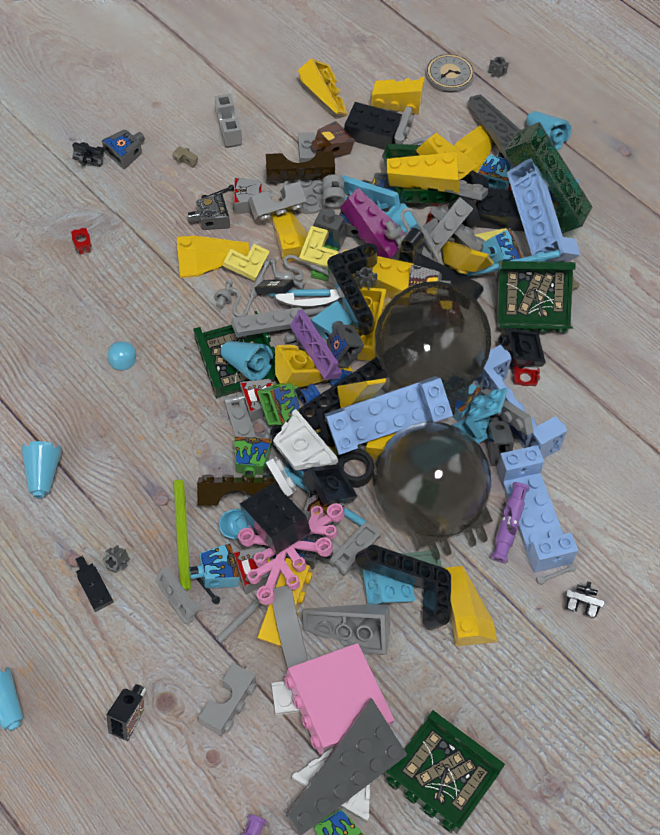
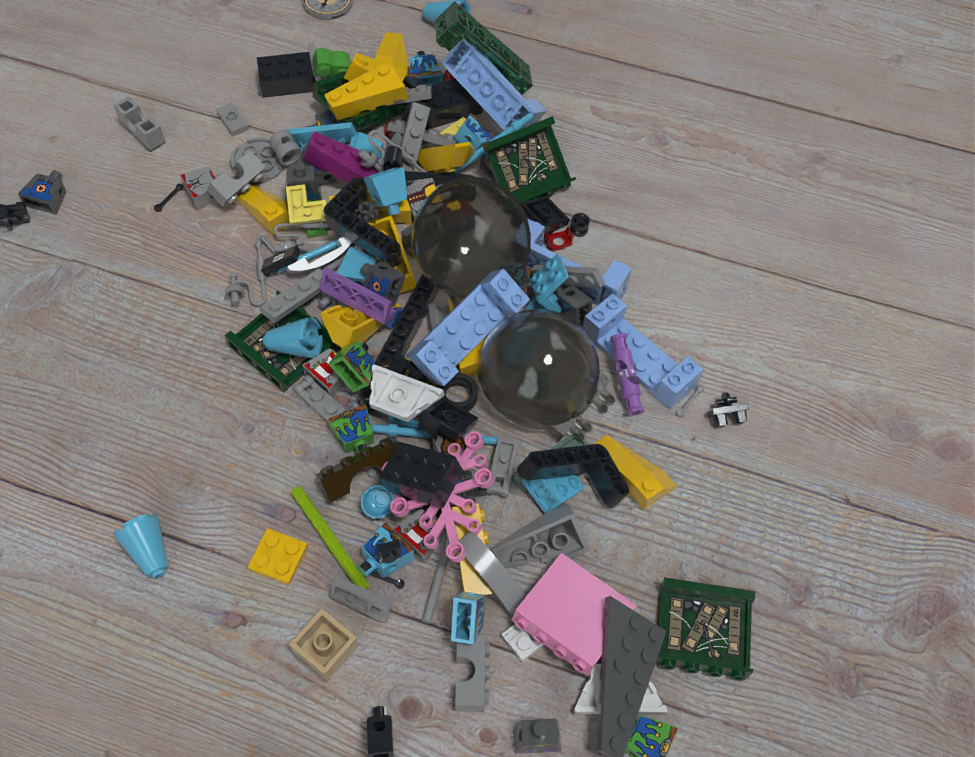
camera: 30 degrees left, 0 degrees up
(84, 244) = (54, 307): red piece -> none
(93, 585) = (267, 633): black hinge -> none
(116, 558) = (278, 595): dark grey gear -> none
(121, 355) = (163, 395): medium azure hair -> none
(127, 615) = (324, 644): none -> tan brick
(134, 528) = (278, 556): none -> yellow plate
(186, 156) = (115, 175): dark tan piece -> none
(204, 254) = (191, 260): yellow wedge -> none
(211, 213) = (174, 218): dark grey torso -> none
(215, 567) = (388, 551): none -> black plate
(247, 265) = (240, 253): light yellow plate -> none
(247, 652) = (467, 612): none -> medium azure torso
(250, 780) = (537, 736): none -> dark grey torso
(278, 471) = (390, 428): white plate -> none
(281, 168) = (221, 147): dark brown arch -> none
(309, 394) = (375, 345): blue wheel -> none
(321, 80) = (210, 52): yellow wedge -> none
(333, 138) = (256, 101): reddish brown torso -> none
(358, 392) = (425, 320): yellow wedge -> none
(393, 264) = (388, 188): none -> medium azure torso
(398, 94) = (294, 35): yellow wedge -> none
(413, 131) = (330, 63): none -> bright green brick
(495, 123) = (412, 33): dark grey wing -> none
(555, 367) = (579, 224): none -> black wheel

